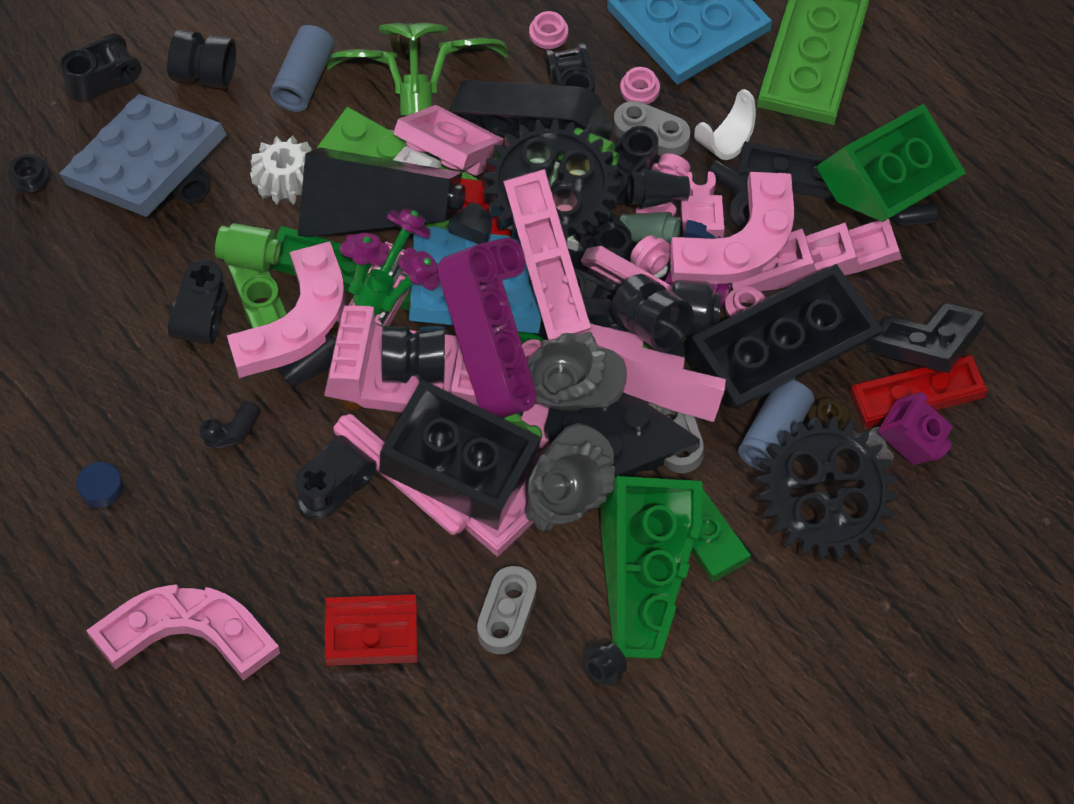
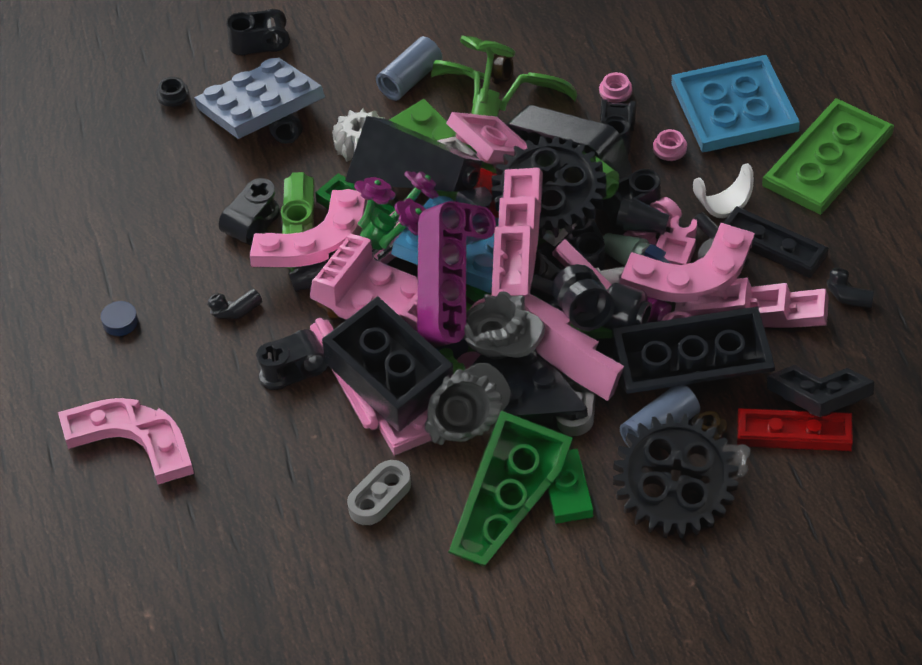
camera: 25 degrees right, 10 degrees down
(207, 59) = (337, 43): black wheel -> none
(247, 247) = (298, 175): bright green brick -> none
(371, 630) = (268, 476): red plate -> none
(413, 354) = (389, 281): black wheel -> none
(605, 663) = (437, 553): black plate -> none
(651, 254) = (610, 262): bright pink plate -> none
(656, 119) = (674, 181): light grey plate -> none
(892, 166) = (844, 247): green slope -> none
(916, 430) = (764, 454): magenta brick -> none

